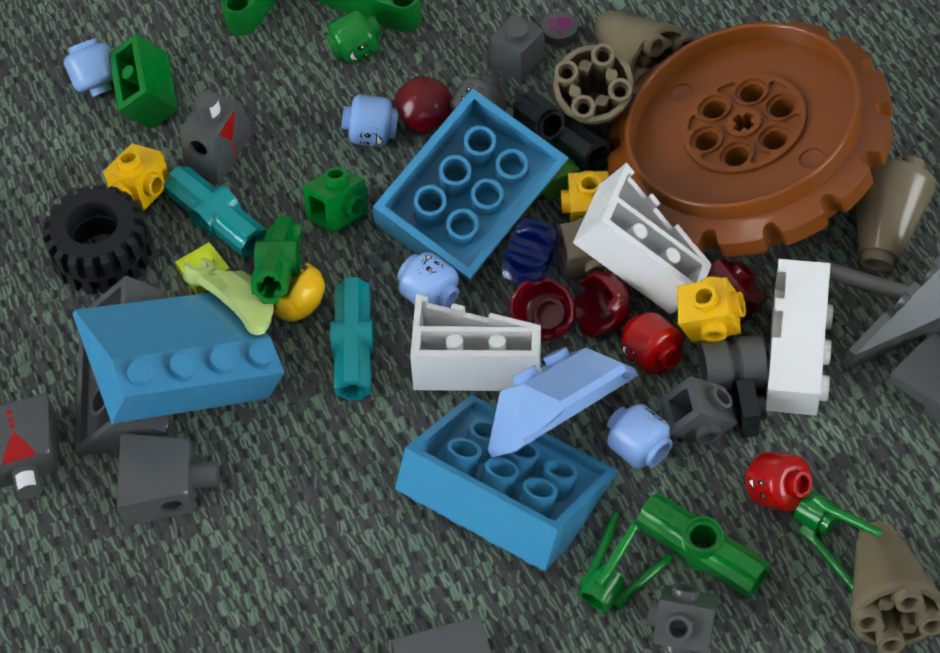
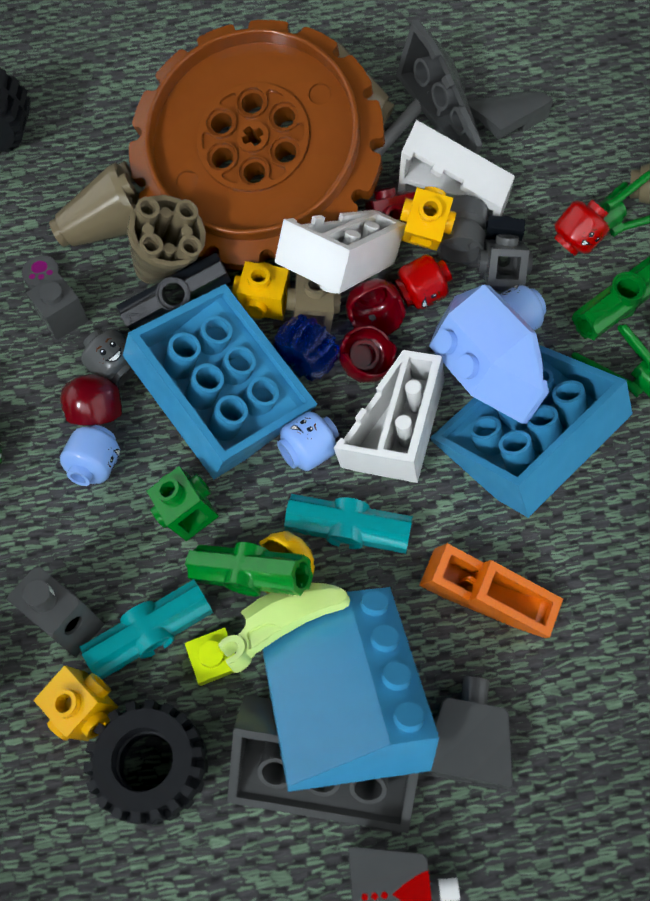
camera: 80 degrees left, 10 degrees up
(310, 472) = (491, 590): none -> orange slope

